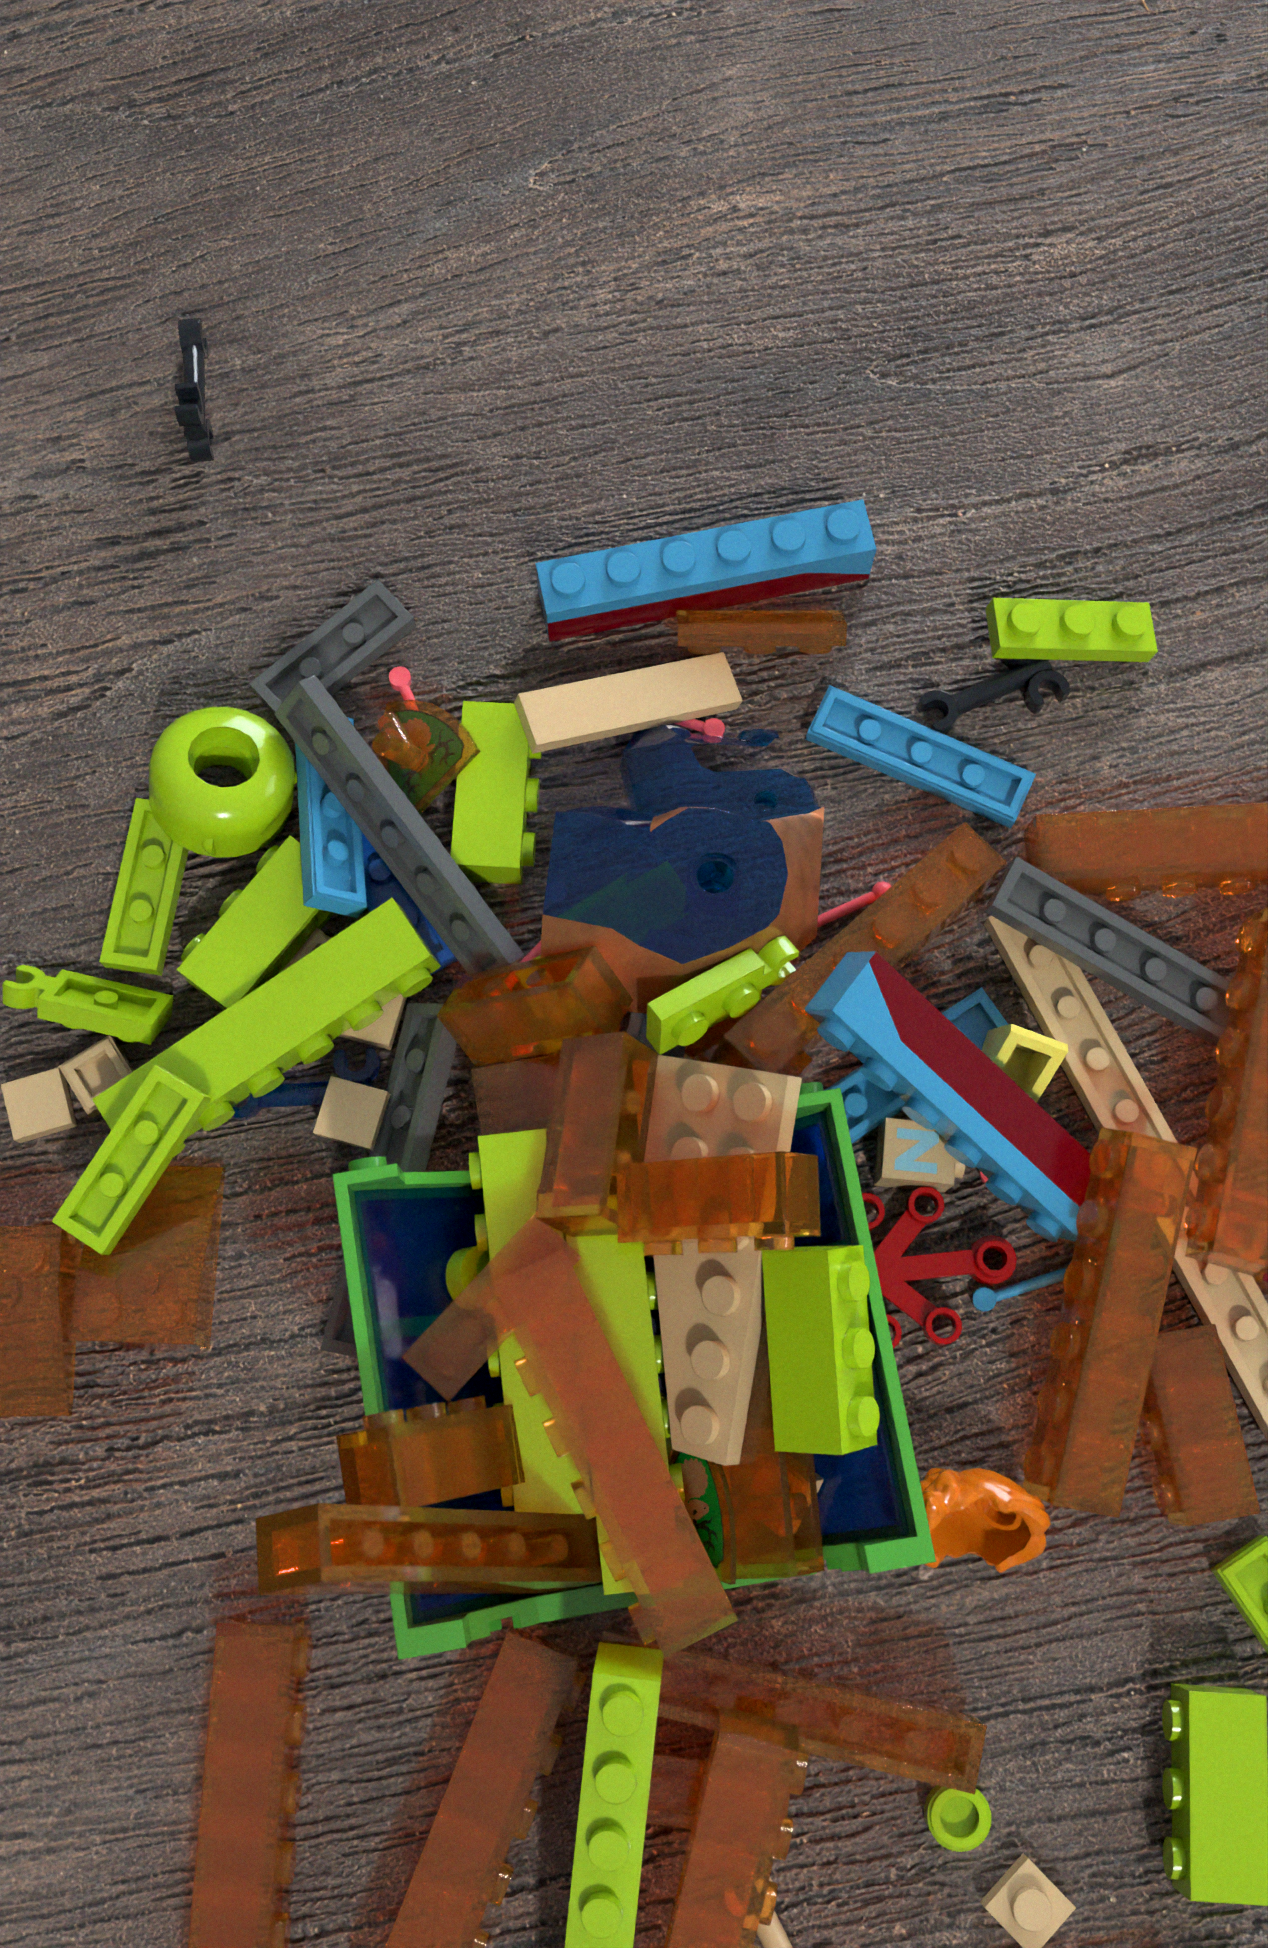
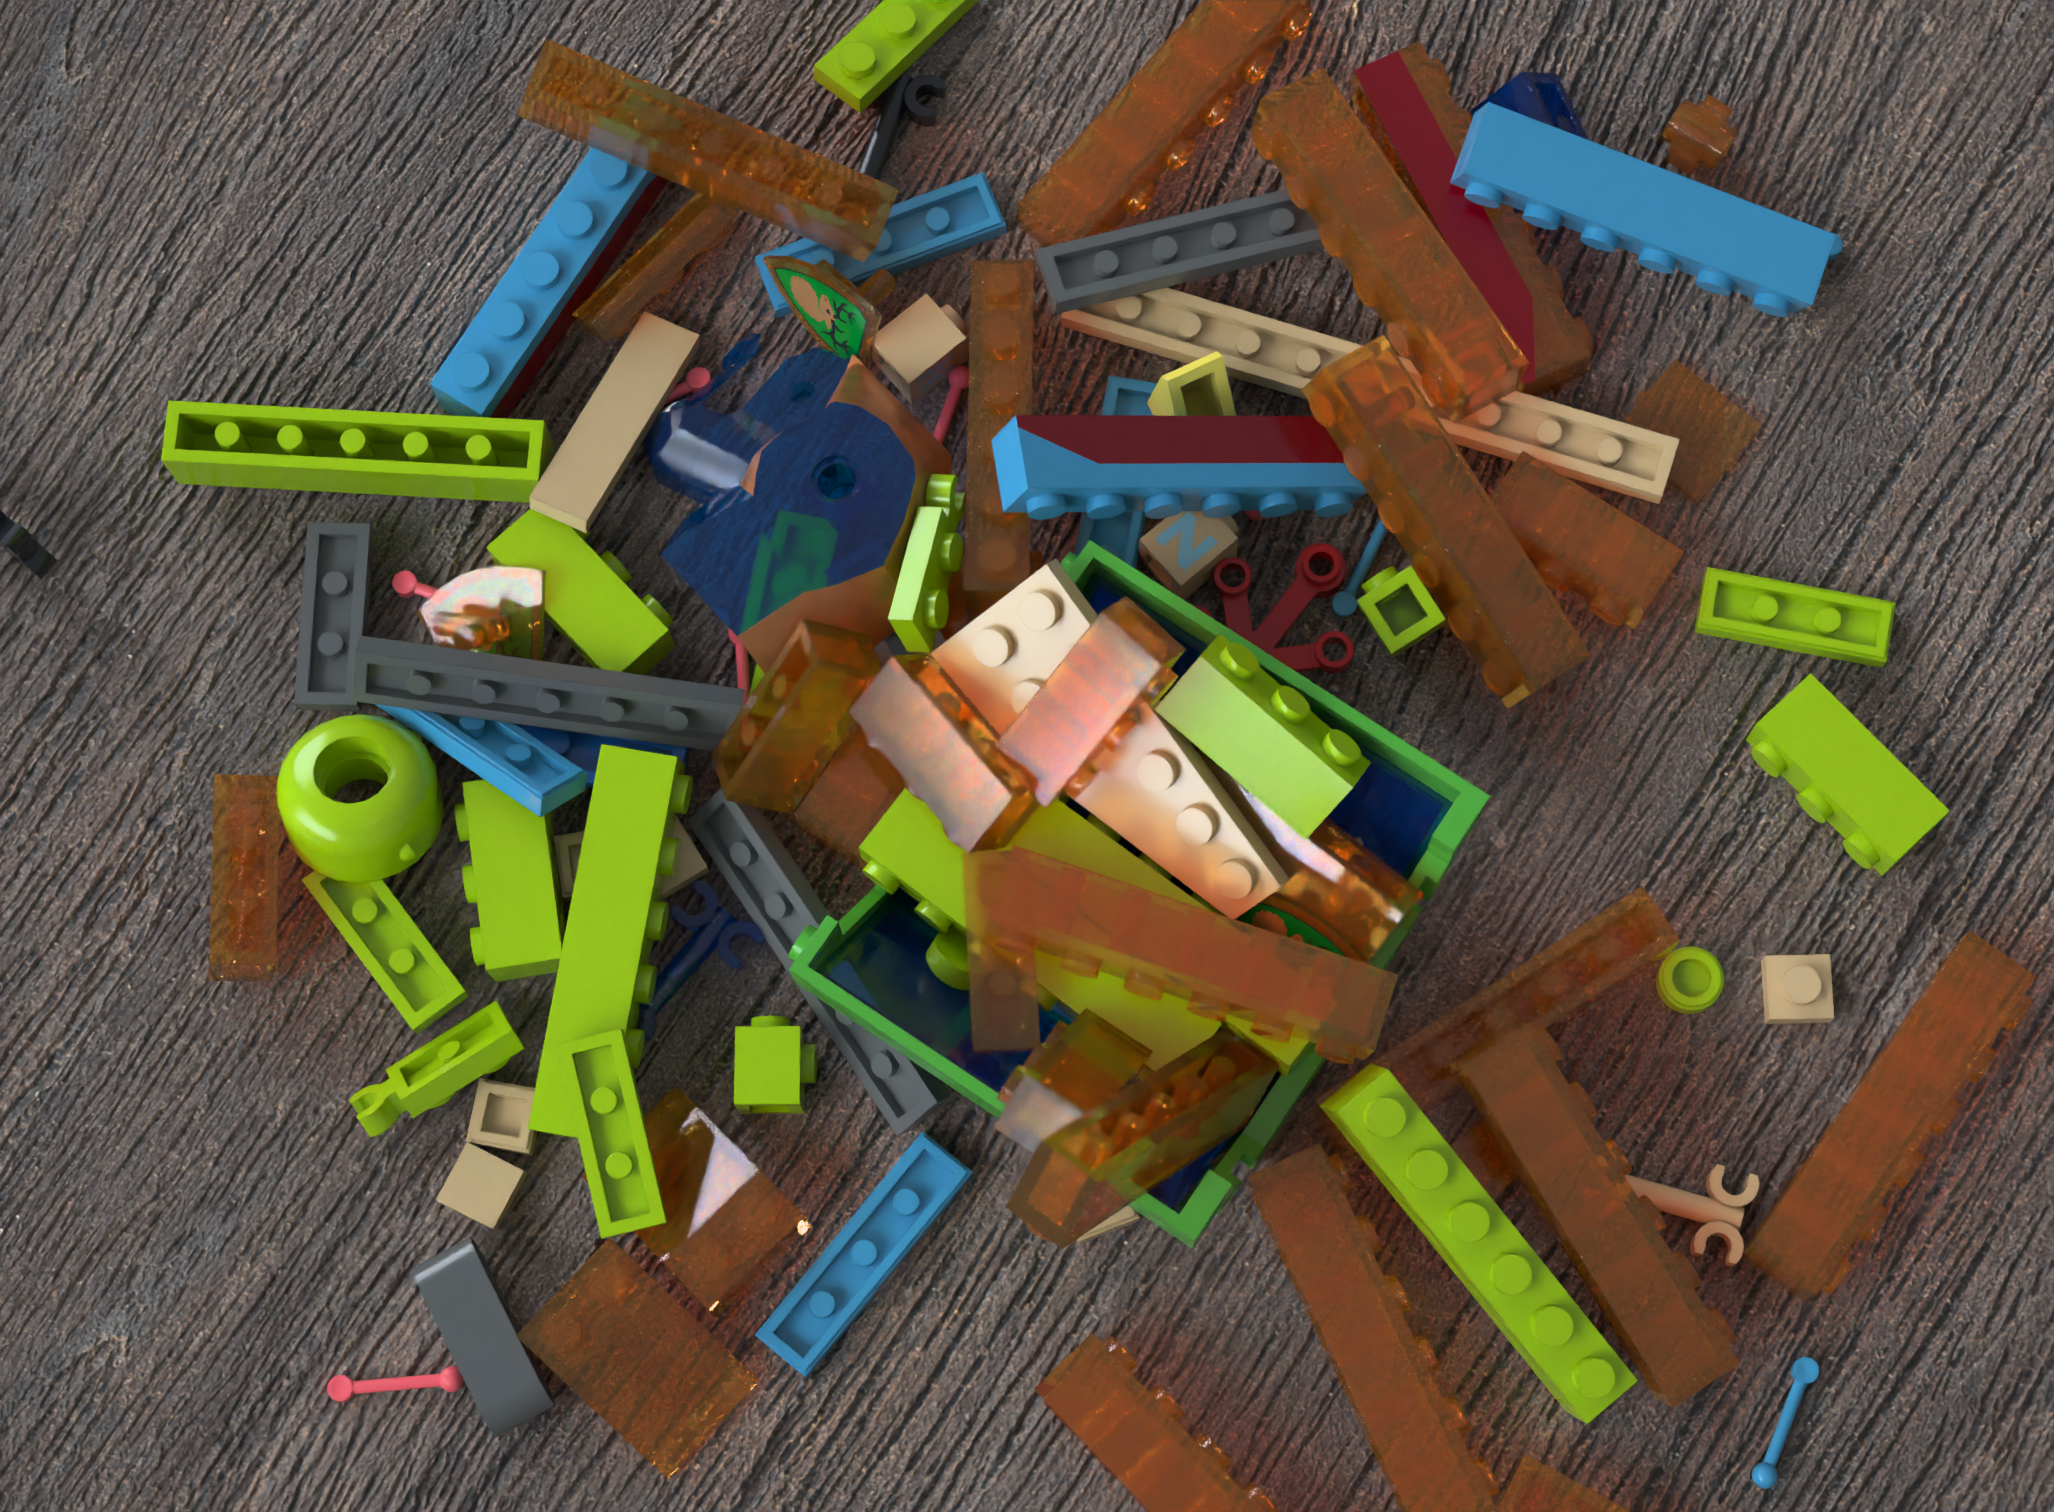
camera: 40 degrees left, 0 degrees up
(96, 761) = (243, 878): none -> clear orange brick
(219, 1405) = (864, 1254): none -> dark azure tile
(288, 1219) = (772, 1067): none -> lime brick
(351, 1113) = (735, 941): tan tile -> none
(449, 562) = (355, 451): none -> lime brick
(846, 762) = (831, 305): none -> shield
(860, 578) = (706, 151): none -> clear orange brick
(875, 846) = (921, 347): none -> tan brick
(983, 1517) = (1503, 753): orange hair -> none
(1015, 1346) = (1399, 609): none -> lime brick

